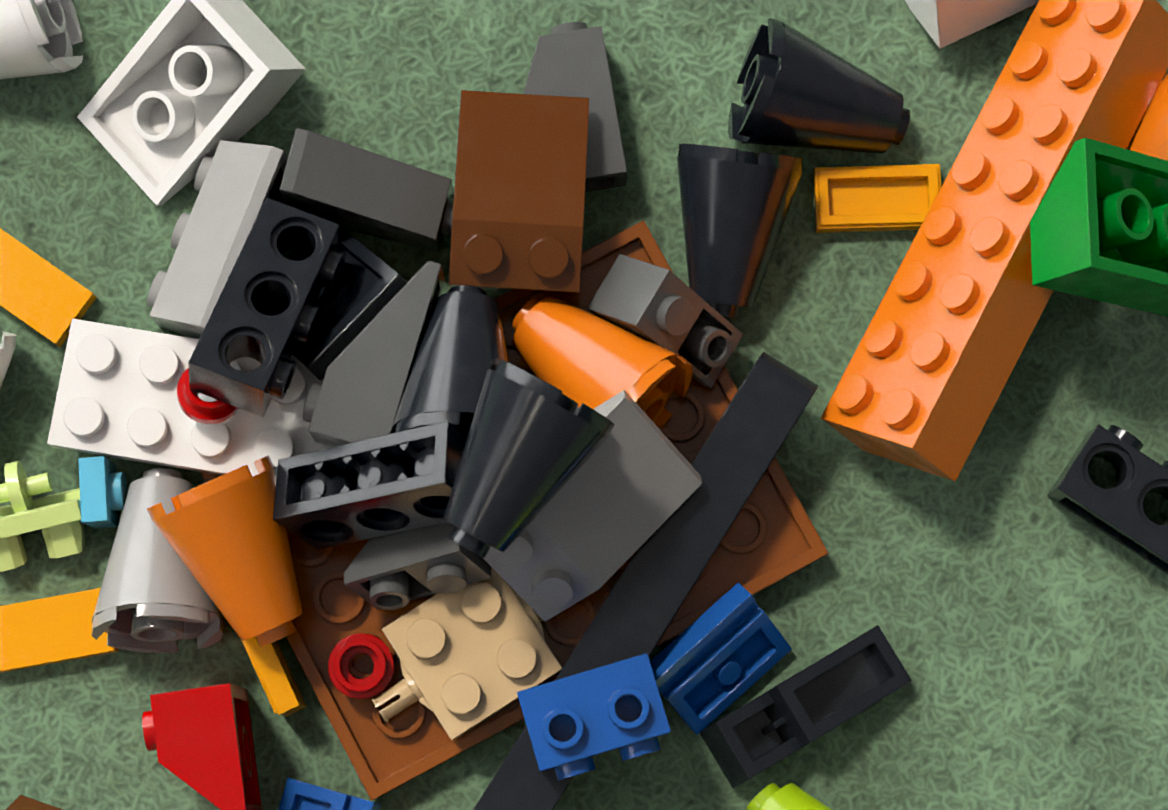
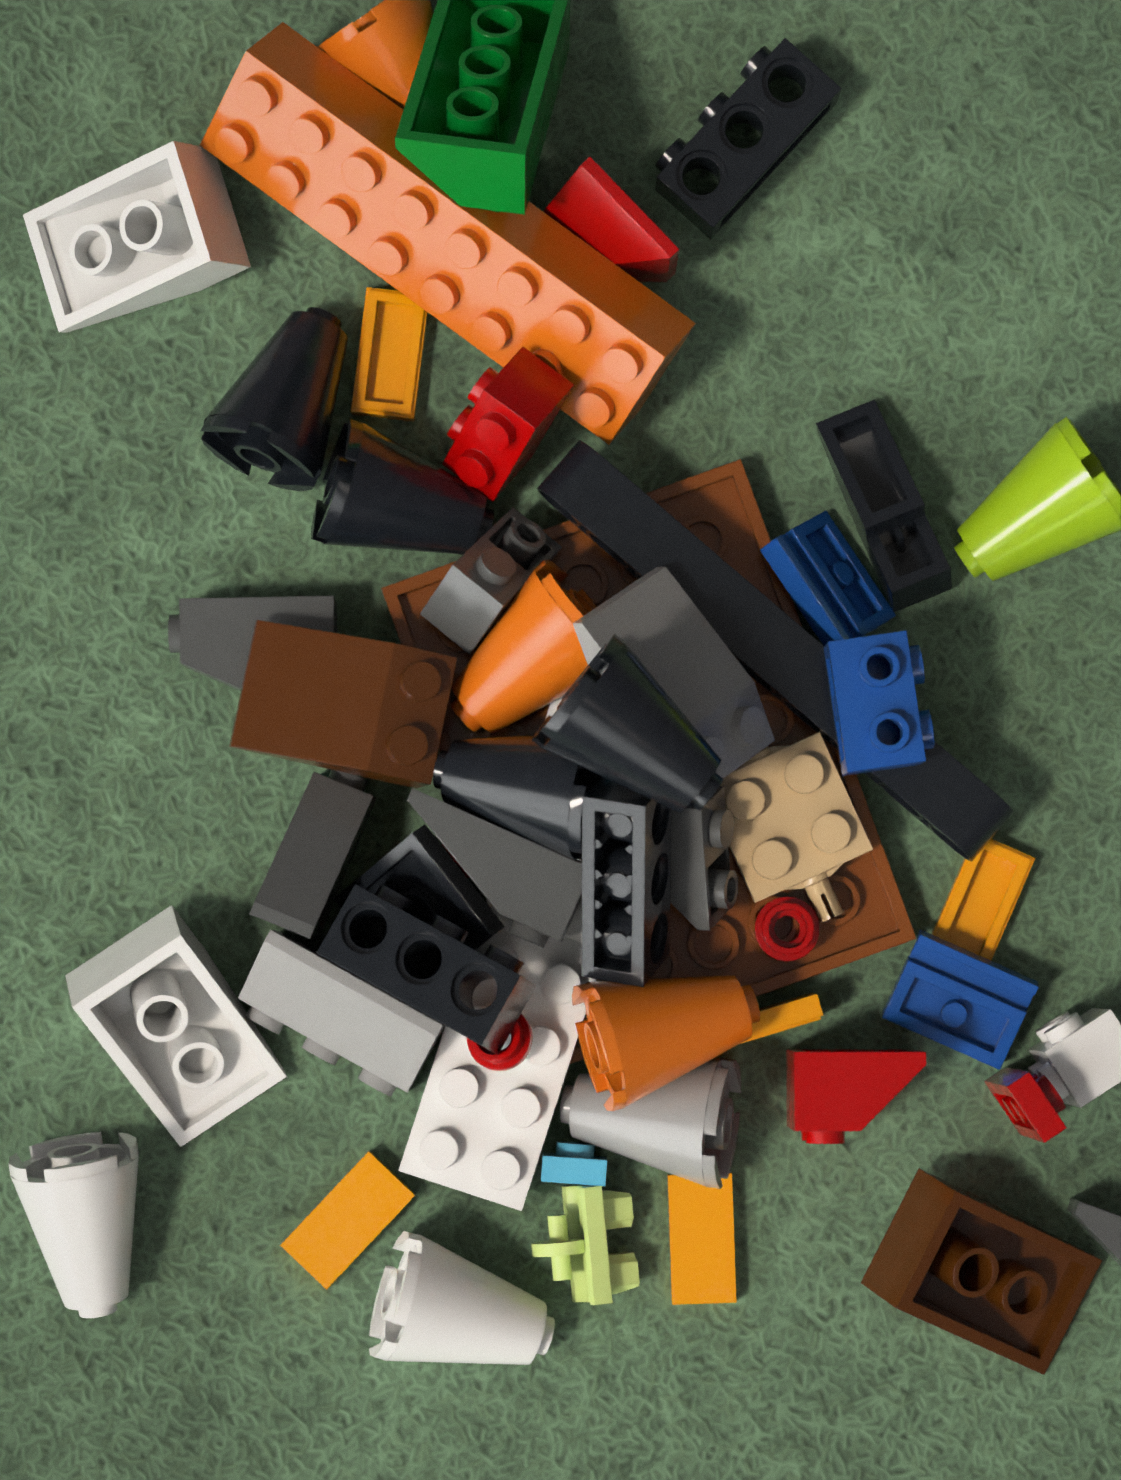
camera: 85 degrees left, 5 degrees up
(824, 310) = (506, 422): none -> red brick
(1039, 383) = (613, 224): none -> red slope

